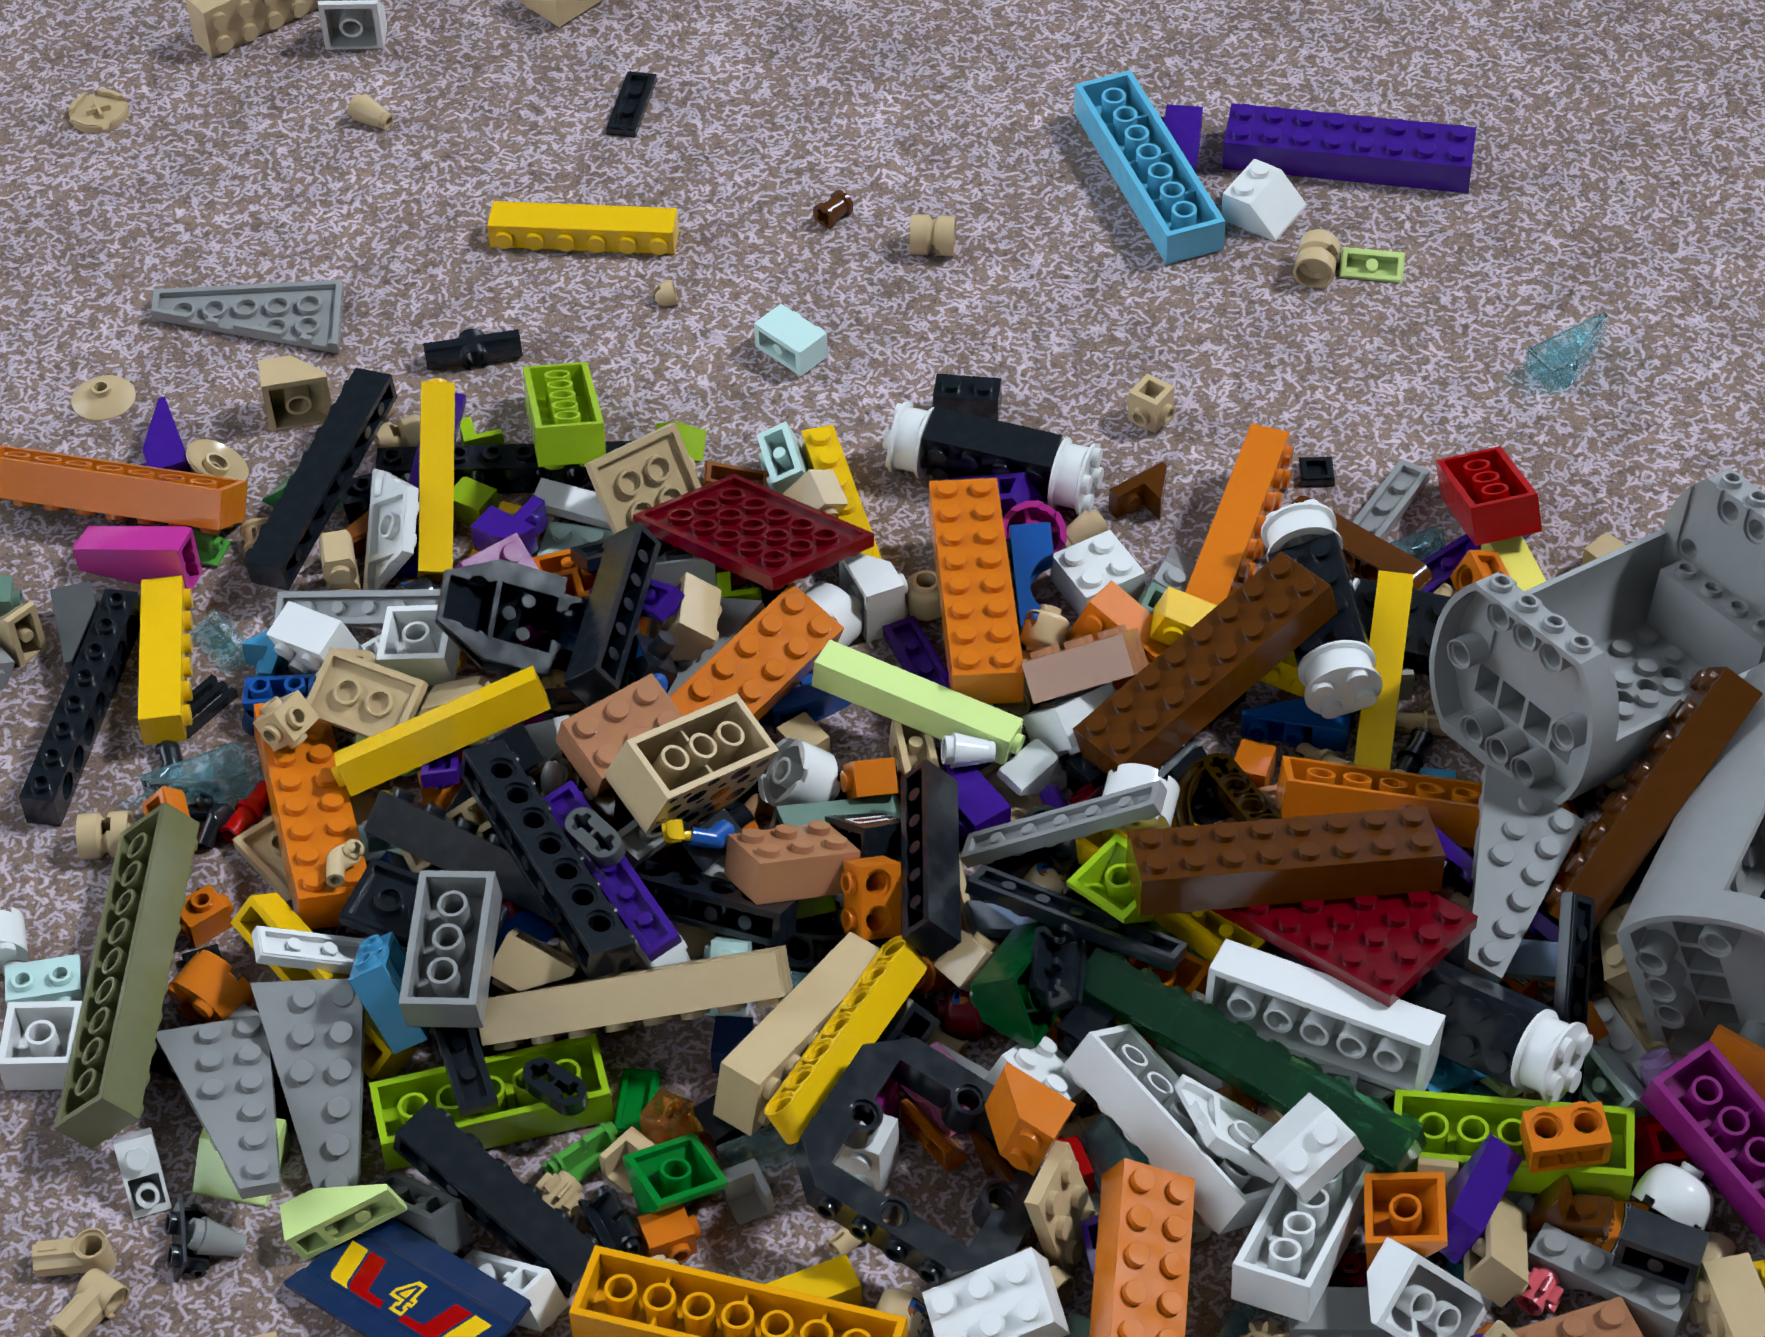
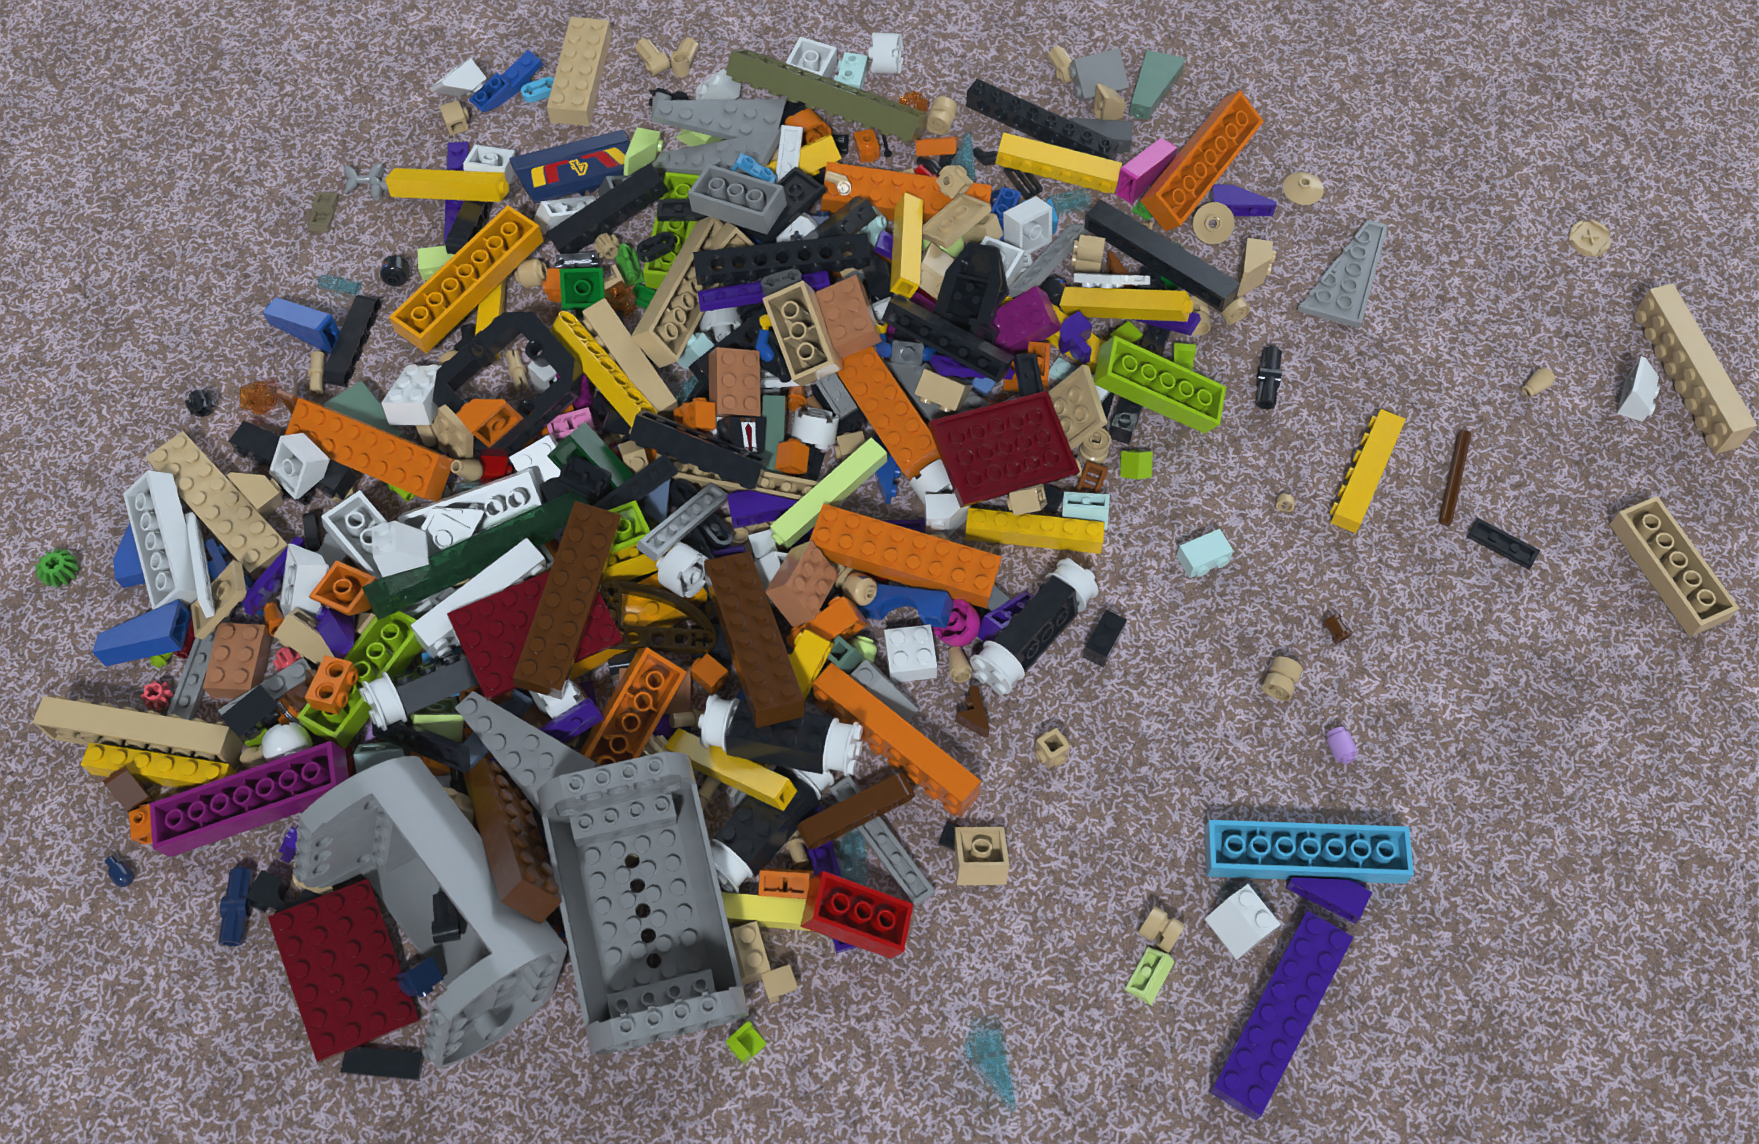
camera: 110 degrees right, 15 degrees up
(91, 875) = (915, 98): none -> clear orange brick
(552, 158) = (1455, 478): none -> reddish brown axle
(966, 750) = (777, 502): white cone -> none
(991, 172) = (1341, 745): none -> lavender brick
(1094, 1166) = (468, 469): none -> tan cone
(1331, 427) = (981, 856): none -> tan slope

